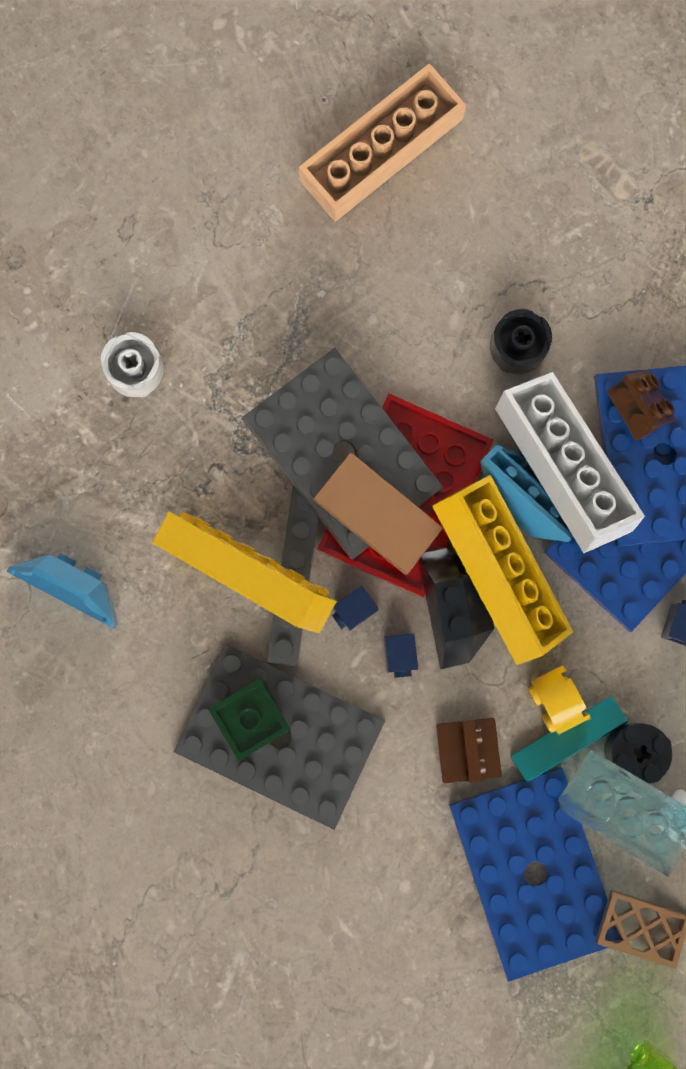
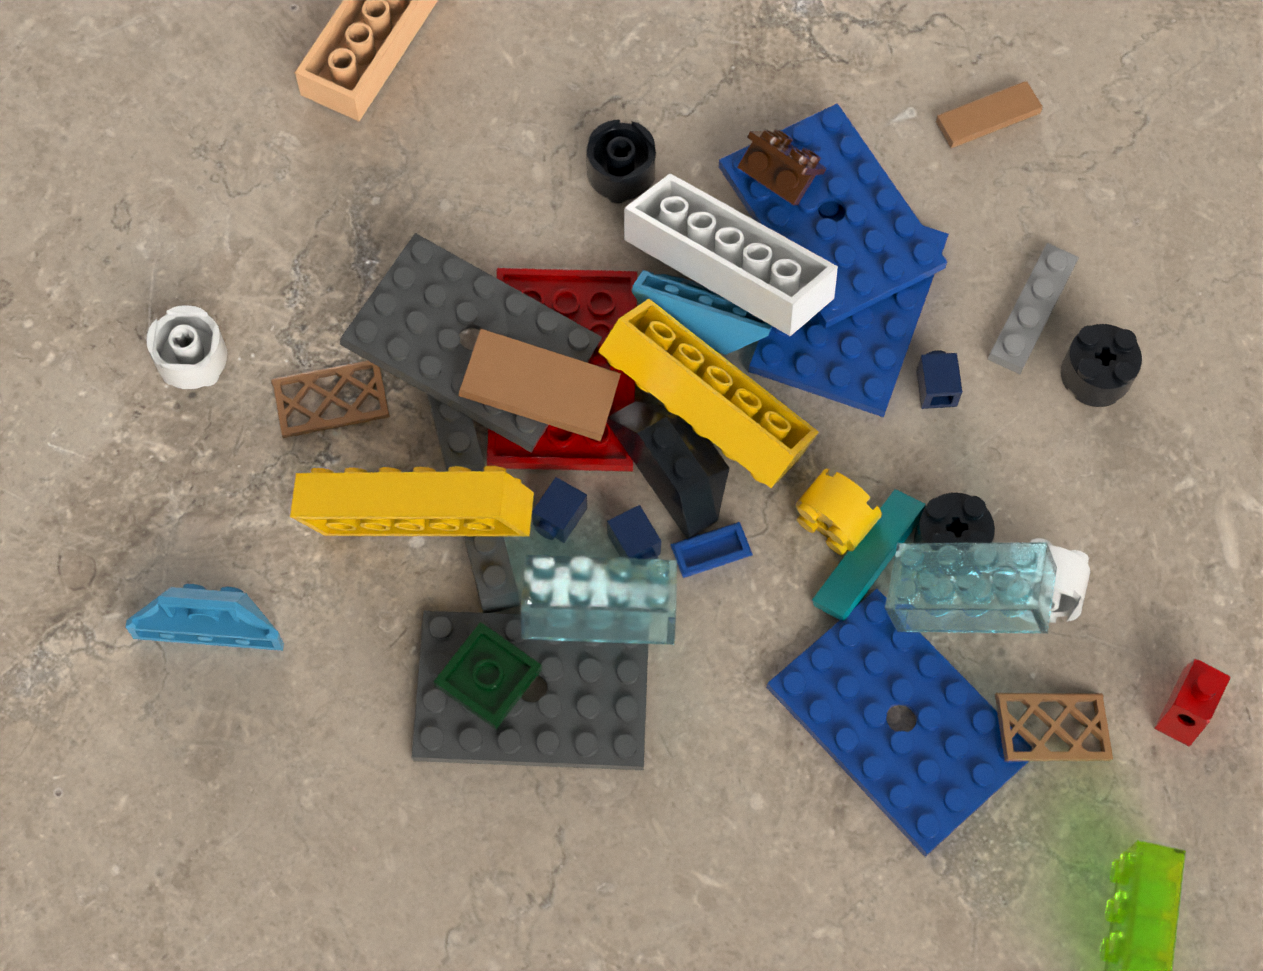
camera: 20 degrees left, 15 degrees down
(206, 461) = (315, 421): none -> medium nougat window
(354, 696) = (599, 599): none -> clear light blue brick
(454, 685) = (711, 549): none -> blue tile
(468, 750) = (760, 613): reddish brown bracket -> none

